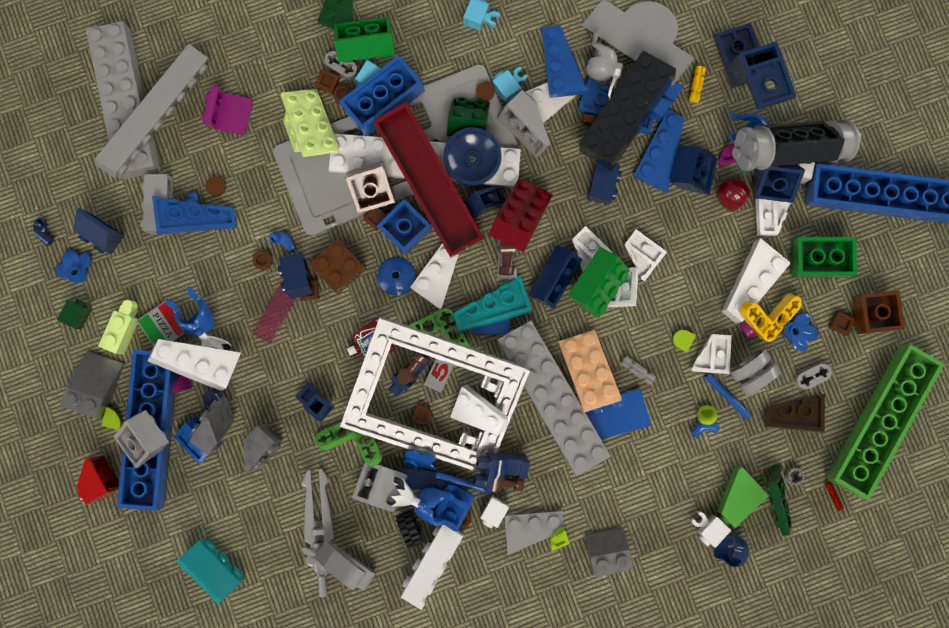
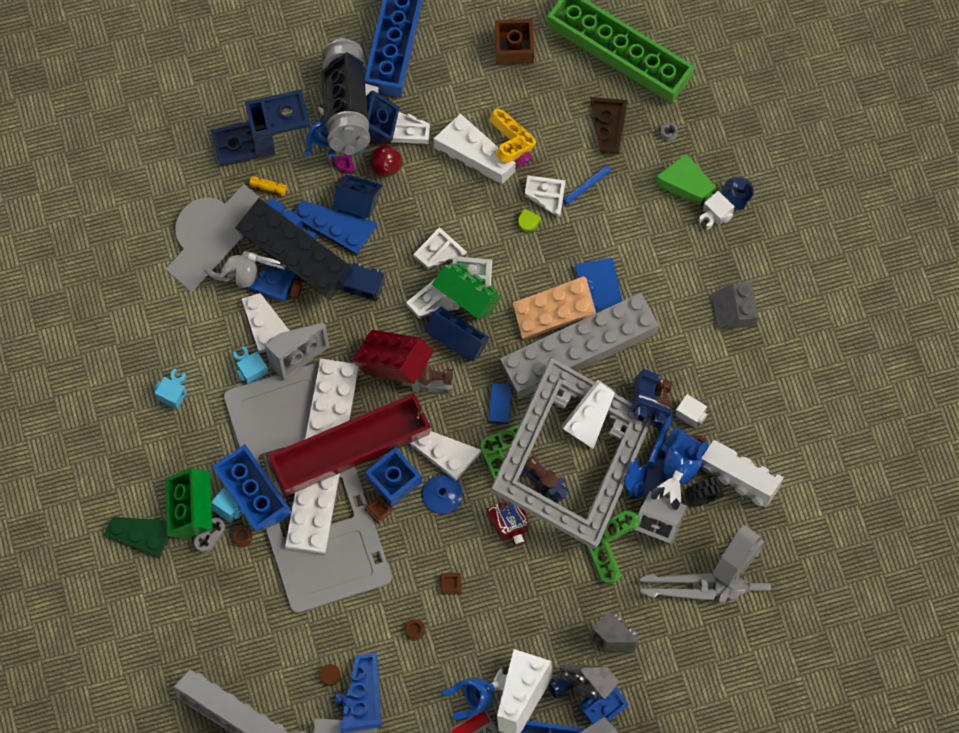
camera: 90 degrees left, 15 degrees down
(181, 384) = (541, 717): magenta tile -> none
(211, 570) = (737, 692): teal slope -> none
(226, 111) = (250, 655): magenta bracket -> none
(274, 316) = (473, 619): clear pink plate -> none
(283, 239) = (394, 605): blue arm -> none
(295, 276) = (436, 591): dark blue brick -> none
(308, 123) = (274, 569): yellowish green bracket -> none
(315, 402) = (572, 577): dark blue brick -> none
(327, 81) = (227, 550): reddish brown plate -> none
(337, 266) = (428, 548): reddish brown brick -> none
(370, 187) = (349, 505): brick -> none
(422, 415) = (589, 477): reddish brown tile -> none
(438, 375) = (548, 456): light grey tile -> none
(467, 114) = (283, 406): dark green slope -> none
(468, 144) = (323, 388): dark blue dish -> none
(484, 201) = (370, 395): dark blue slope -> none
(485, 91) = (255, 389): reddish brown tile -> none
(497, 306) = (482, 393): teal wing -> none
(530, 528) = (709, 379): light grey wing -> none
(559, 539) = (721, 352): lime tile -> none
(561, 69) = (235, 313): blue wing -> none
(638, 370) = (556, 265): light grey axle -> none
(699, 428) = (614, 207): blue arm -> none
(707, 415) = (604, 204): lime tile -> none
(755, 372) = (565, 155): light grey wheel -> none
(778, 504) = (694, 147): dark green wing -> none
(802, 332) = (527, 113): blue plate -> none
(815, 380) = (576, 104): light grey beam -> none
(823, 257) = (456, 84): green brick -> none
(834, 496) = (690, 98): red piece -> none
(842, 323) = (521, 75): reddish brown tile -> none

